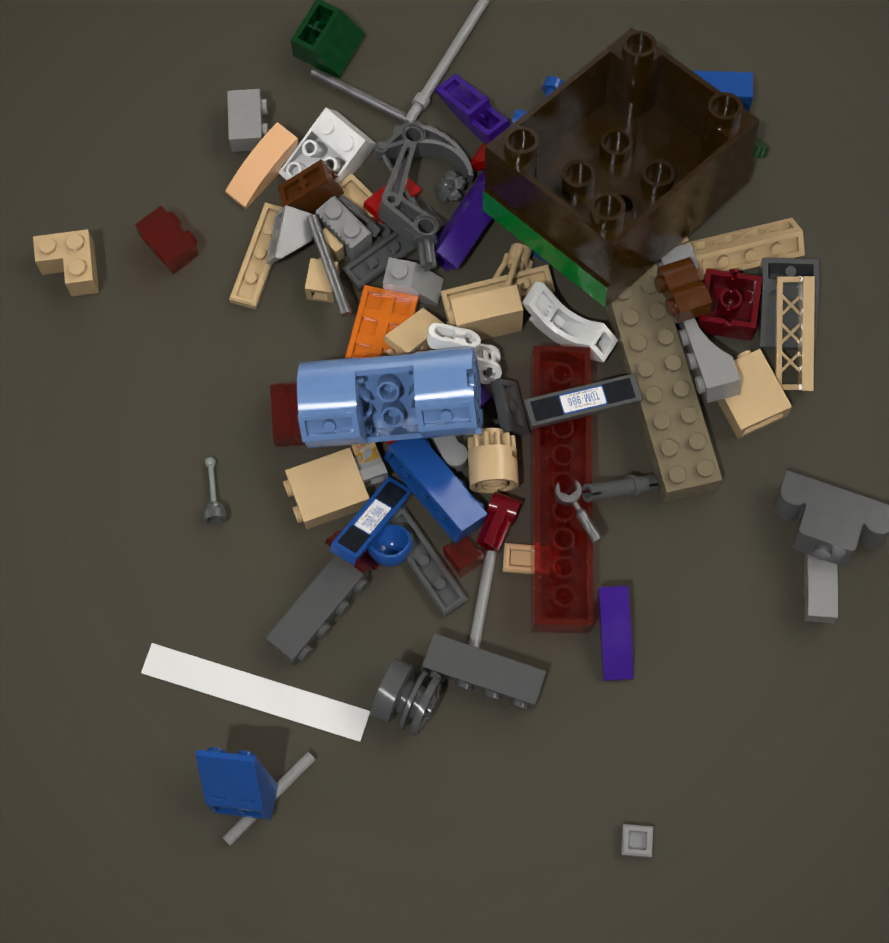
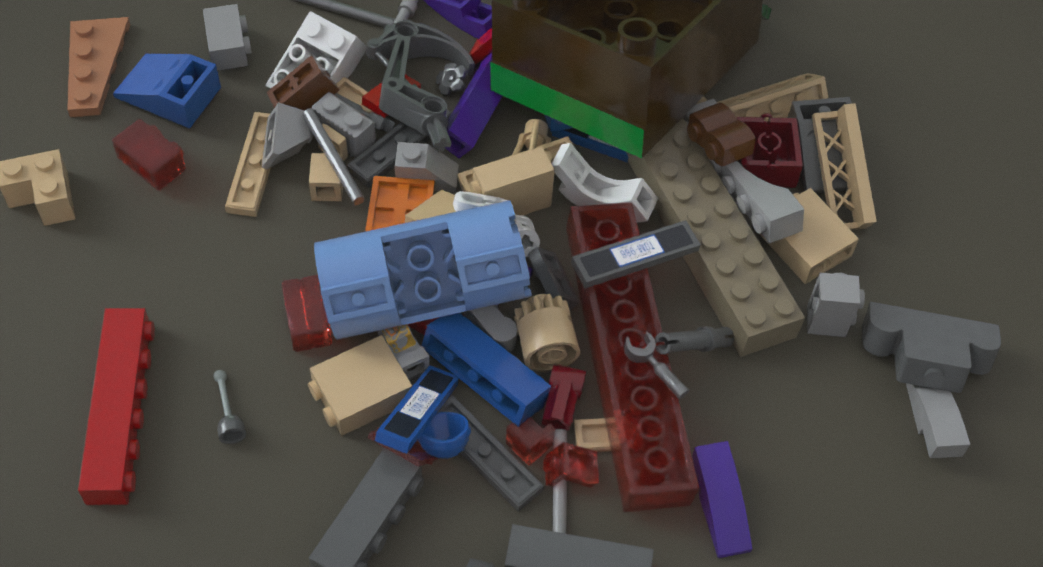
camera: 15 degrees left, 15 degrees down
(122, 479) = (115, 407): none -> red brick
(123, 129) = (92, 61): none -> nougat wing
(190, 167) = (171, 86): none -> blue slope
(262, 165) = (247, 77): light nougat slope -> none
(494, 585) = (571, 464): none -> clear red bracket
(753, 469) = (834, 304): none -> light grey brick

